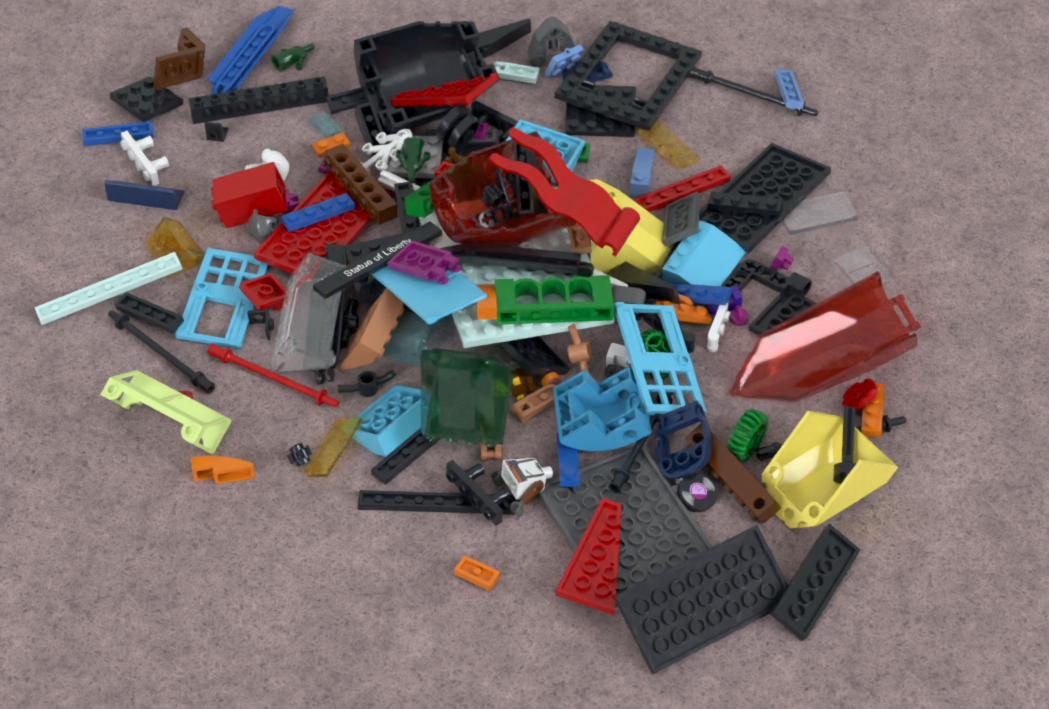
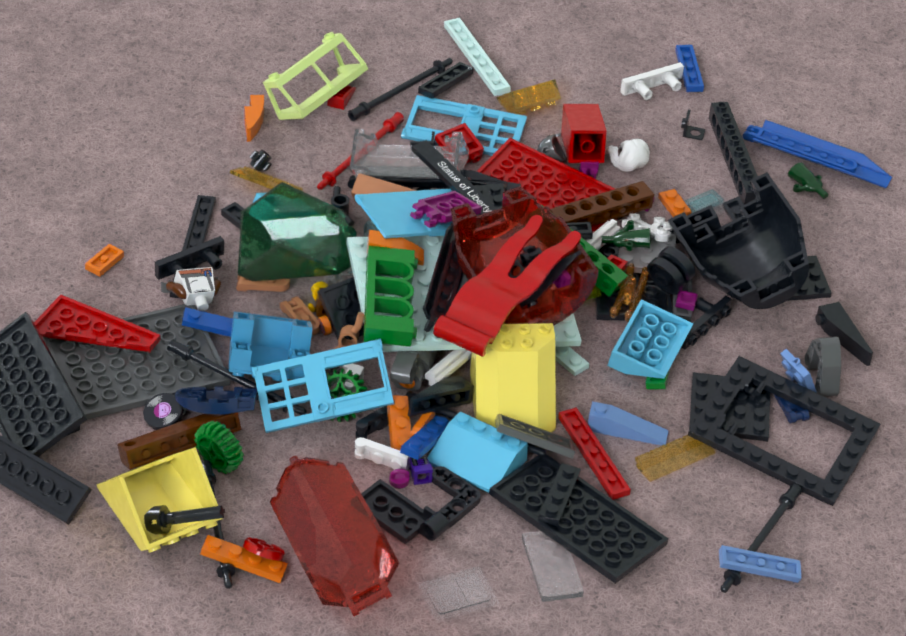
camera: 90 degrees right, 5 degrees down
(143, 194) = (606, 80): dark blue slope -> none
(145, 100) = (737, 84): black plate -> none
(181, 65) = (776, 99): reddish brown bracket -> none
(317, 212) = (562, 178): blue plate -> none
(450, 93) = (718, 260): red wing -> none
(517, 72) = (789, 340): light aqua plate -> none
(782, 259) = (477, 520): magenta tile -> none

